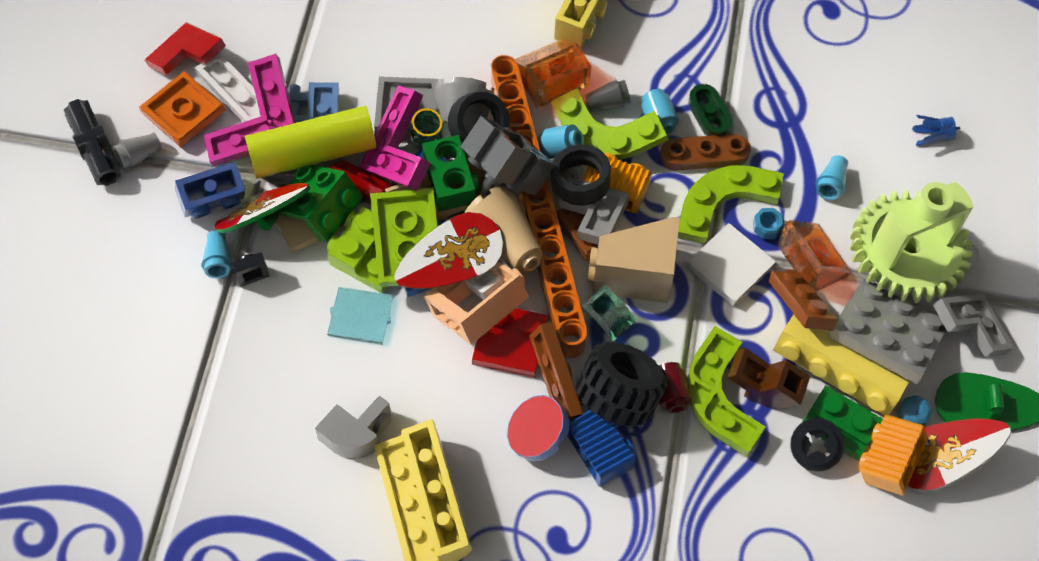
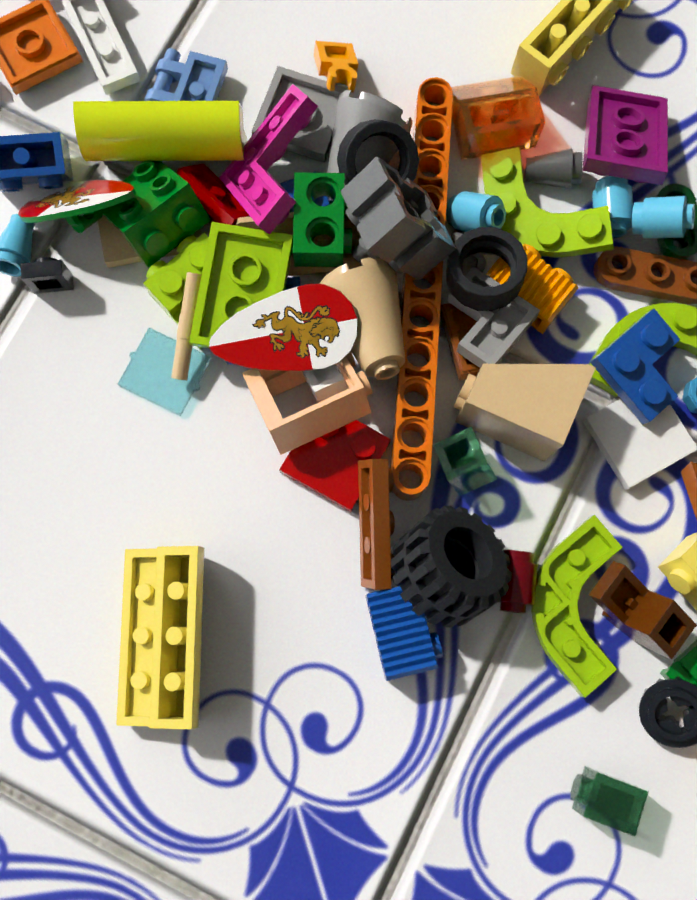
camera: 15 degrees right, 15 degrees up
(273, 108) = (133, 68): dark pink plate -> none
(353, 436) = (100, 528): light grey brick -> none
(371, 275) = (183, 347): none -> tan piece
(423, 64) = (337, 63): none -> light orange plate
(426, 121) = (314, 143): clear green wheel -> none
(537, 428) = (330, 588): tile -> none
(652, 60) = (626, 135): none -> magenta plate
(696, 108) = (662, 217): none -> medium azure brick
(706, 216) = (629, 367): none -> blue plate
(788, 518) = (608, 800): none -> clear green brick

